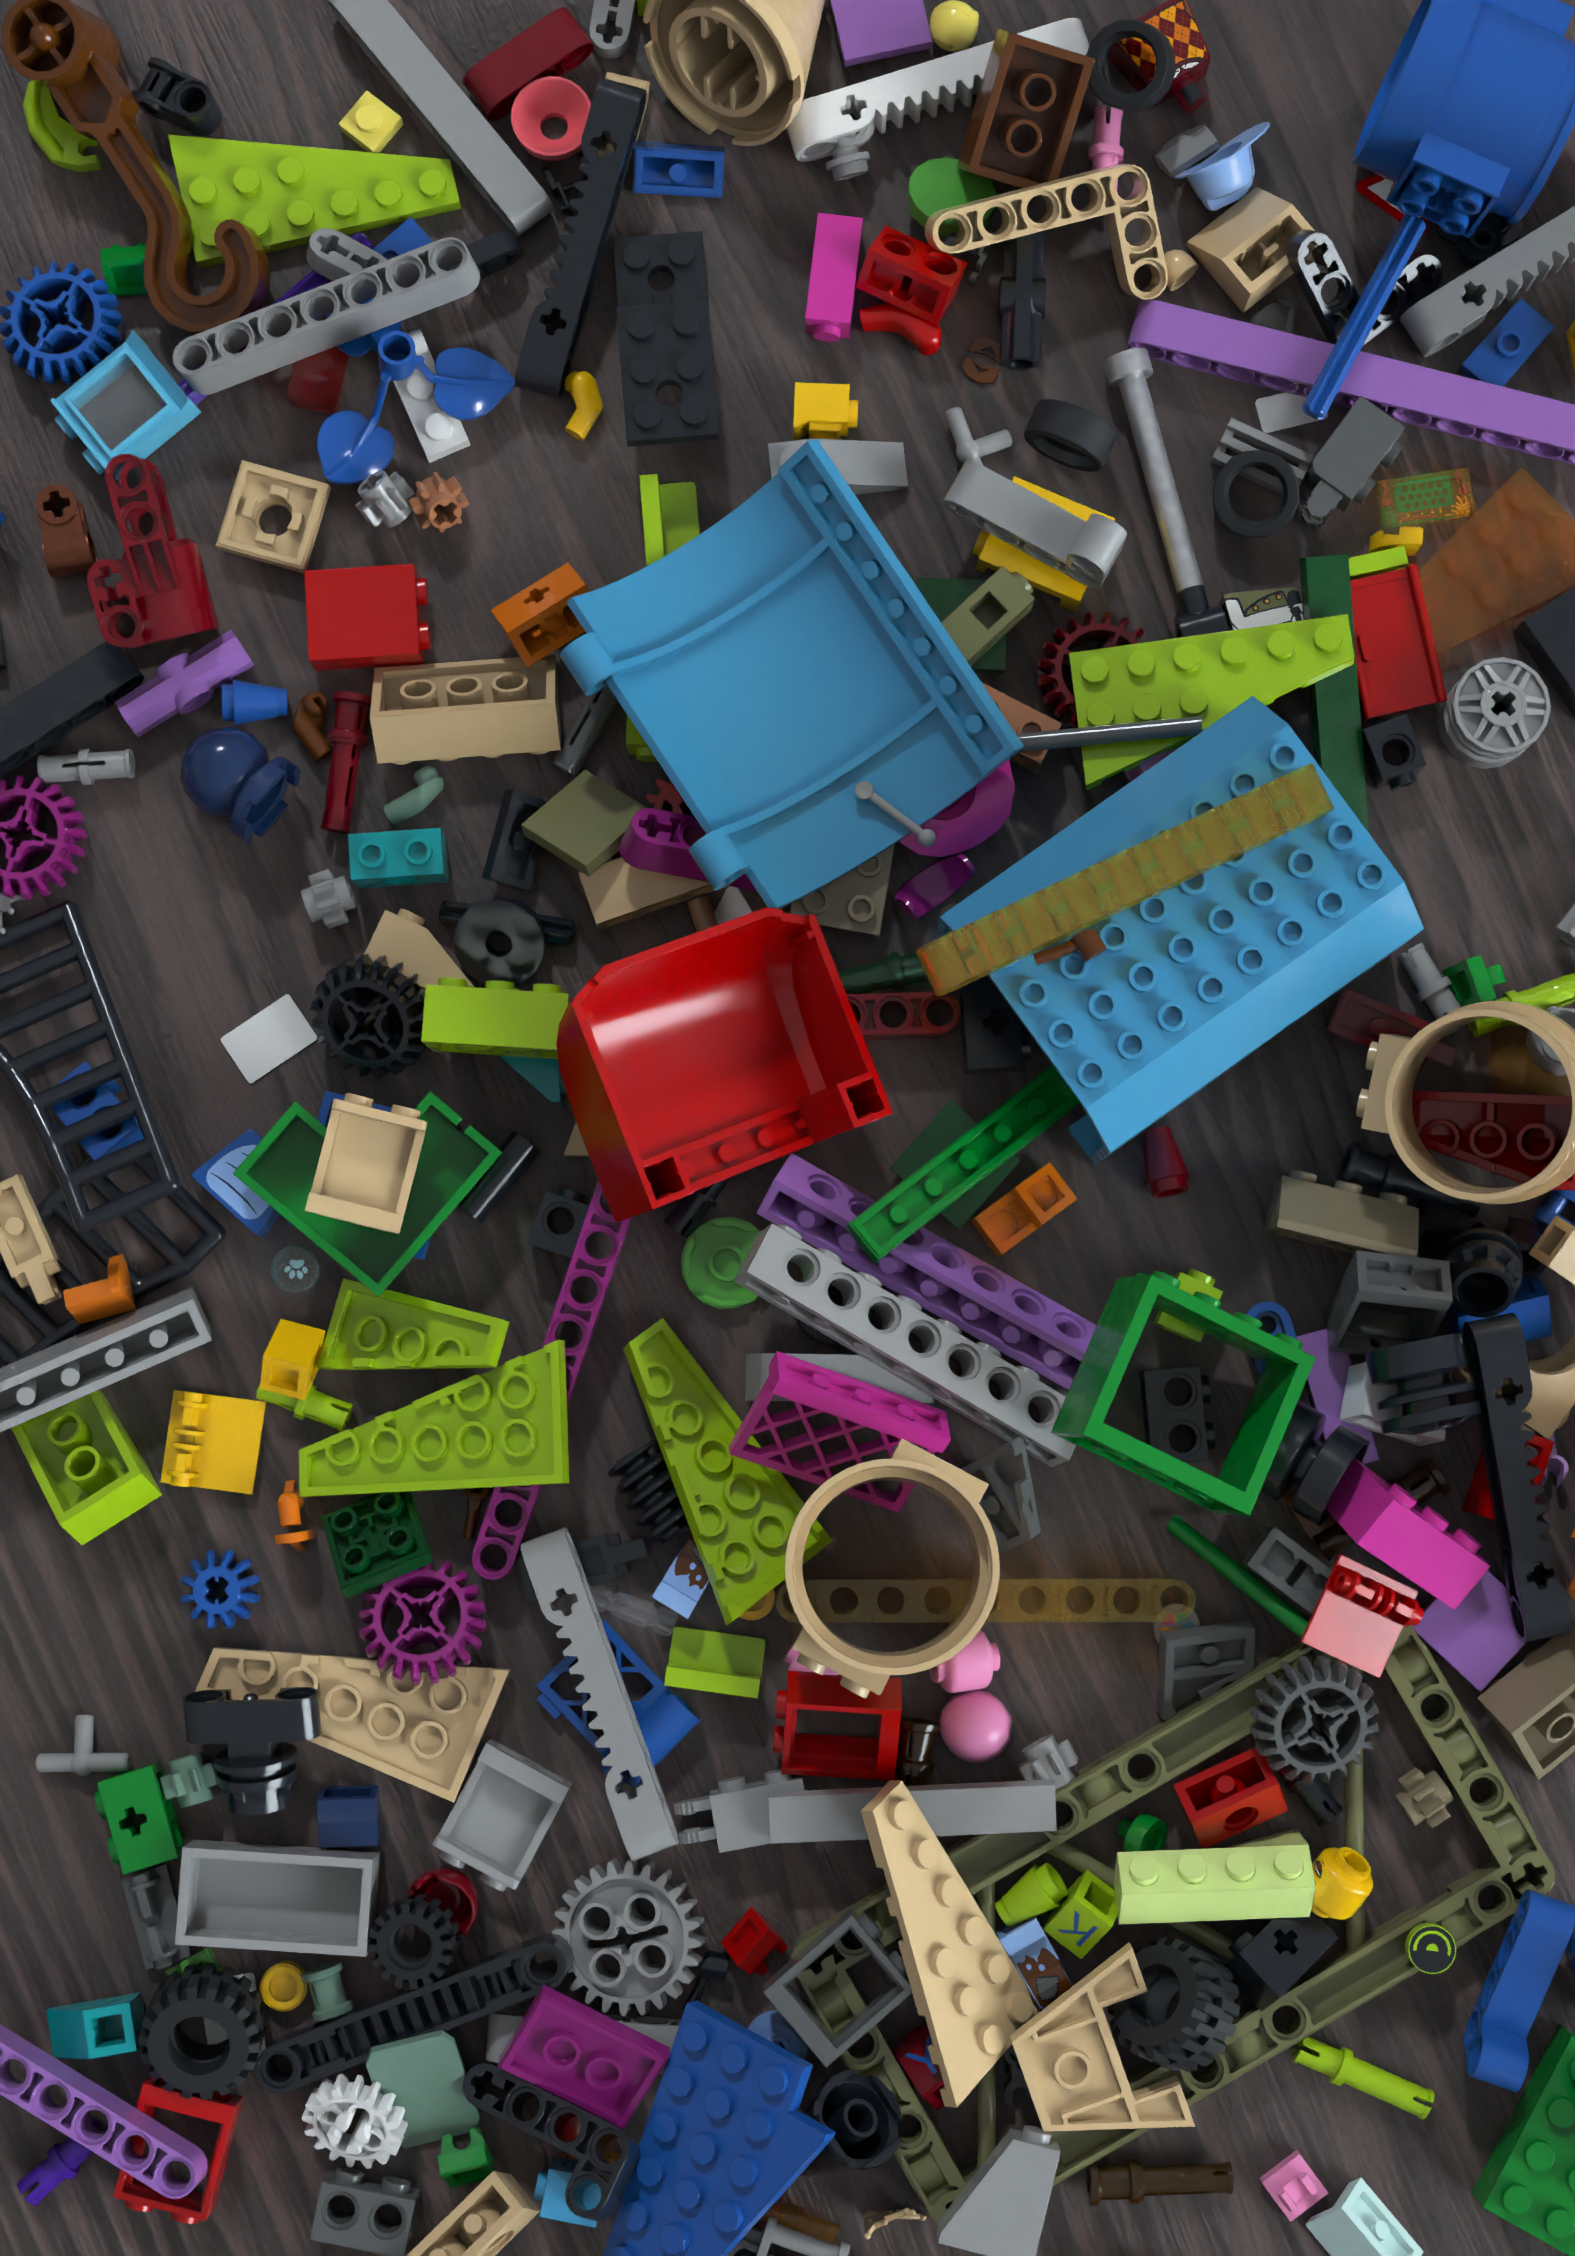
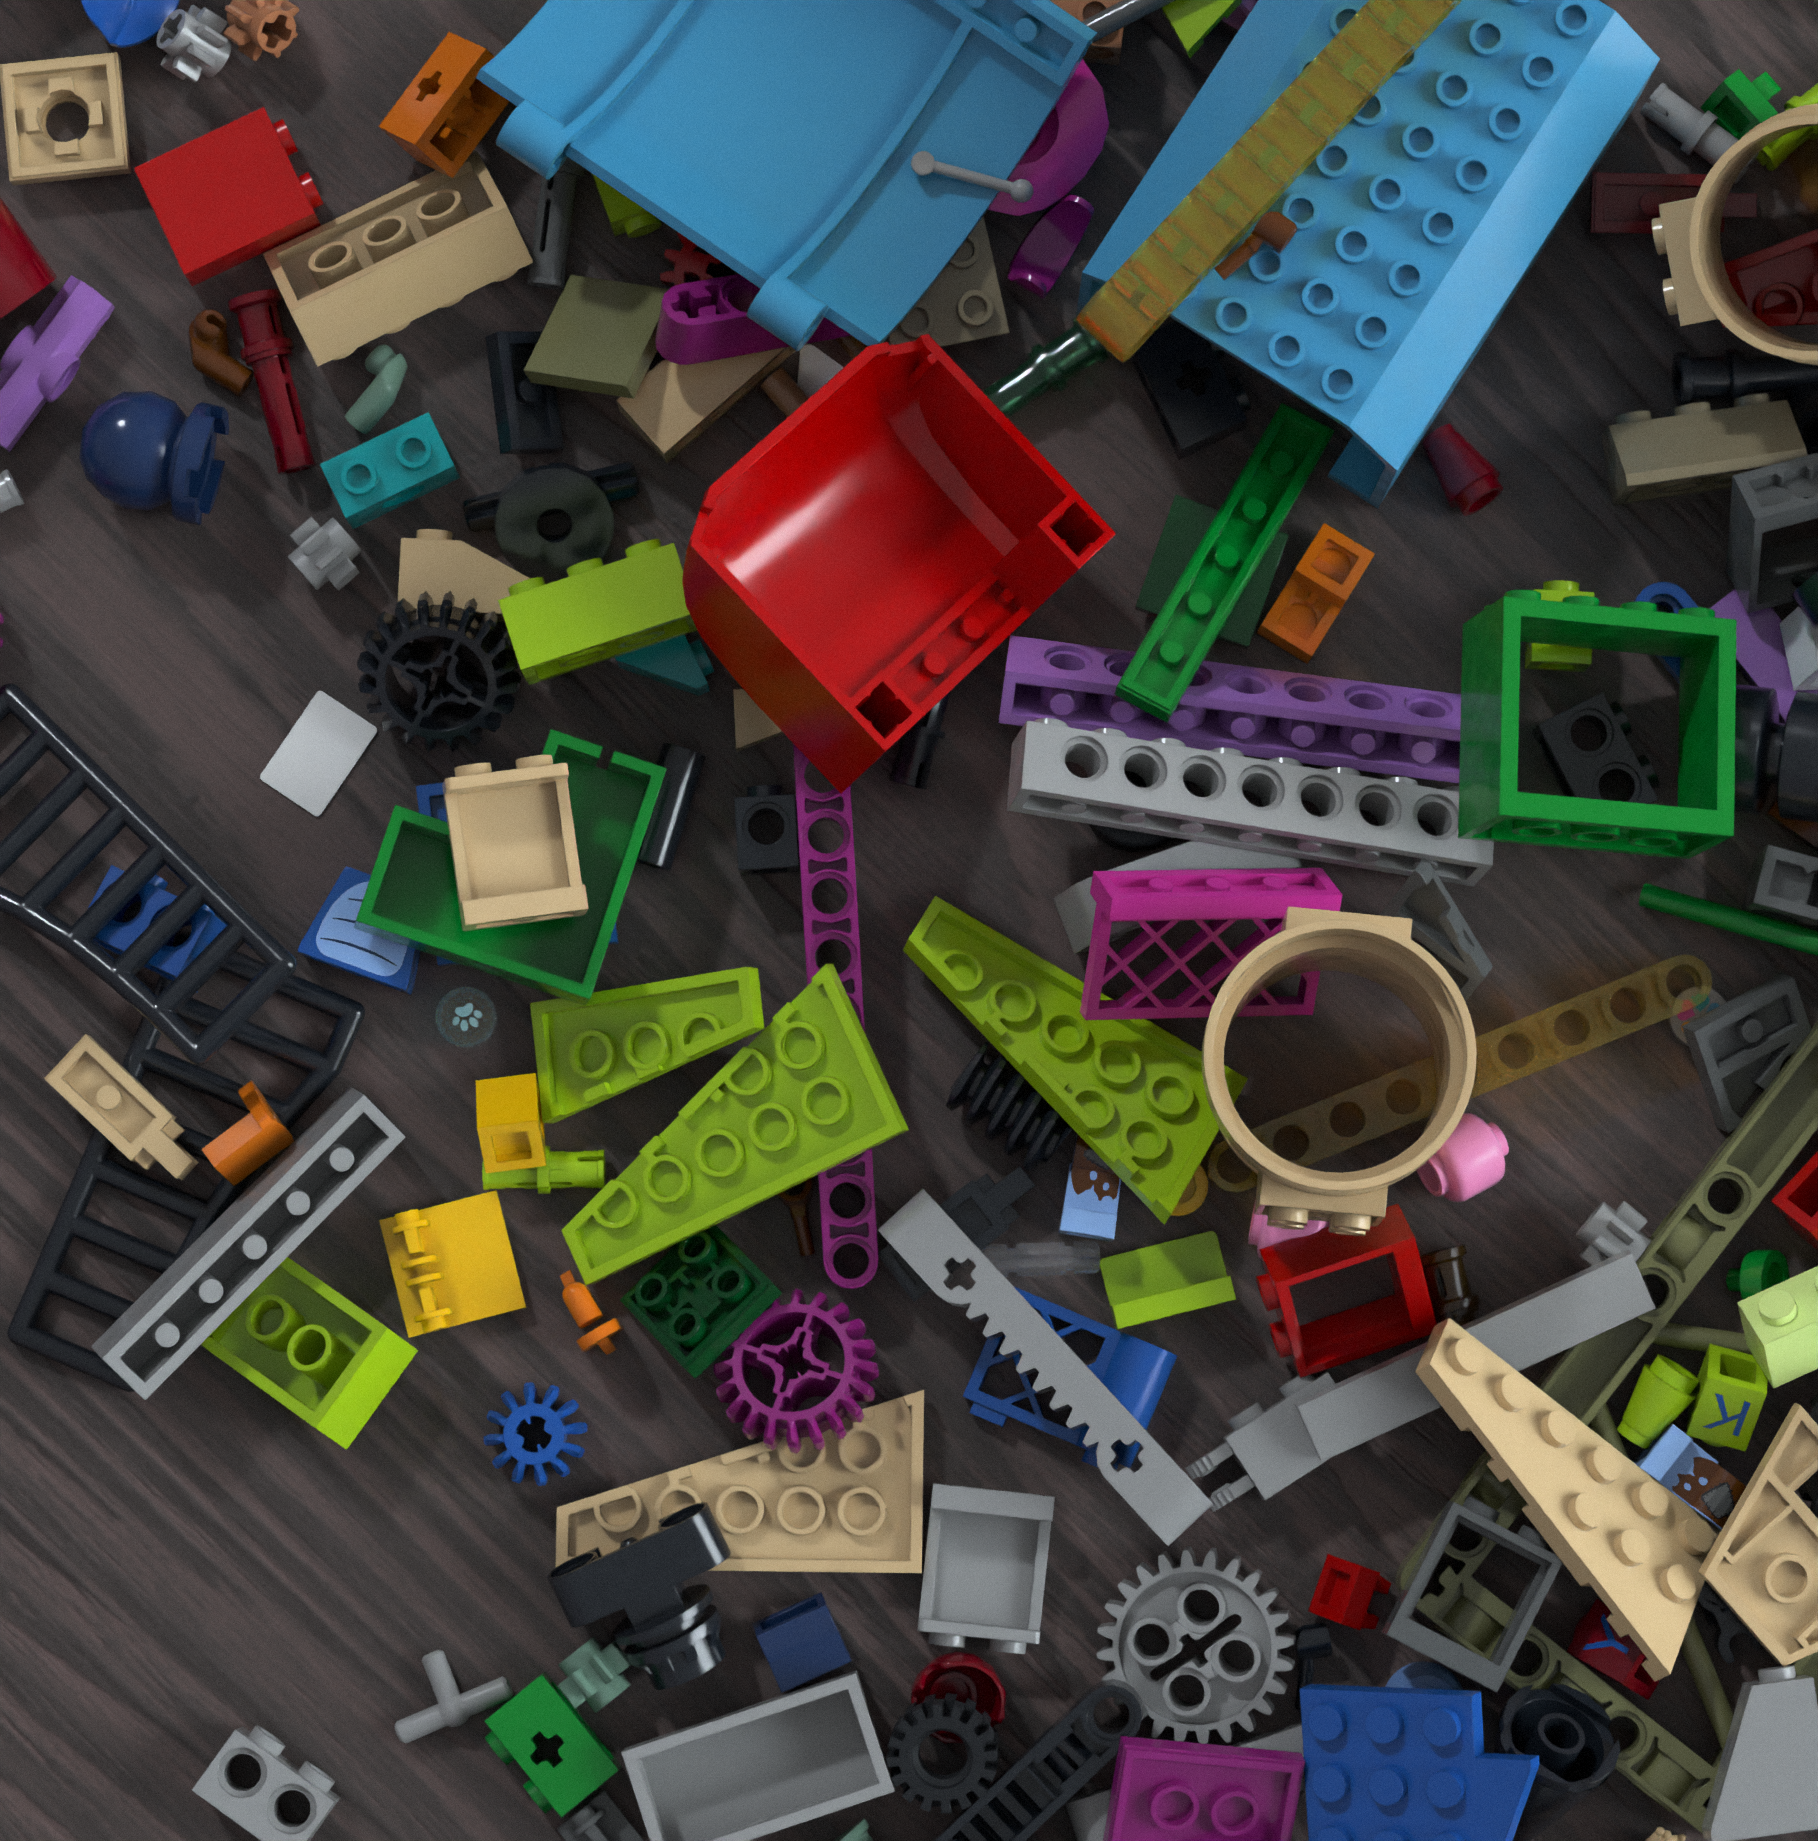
camera: 25 degrees left, 0 degrees up
(252, 702) = (132, 353): blue cone -> none
(713, 1260) = (970, 803): bright green tile -> none
(914, 1006) = (1088, 404): dark red beam -> none
(975, 1726) = (1508, 1231): bright pink hair -> none

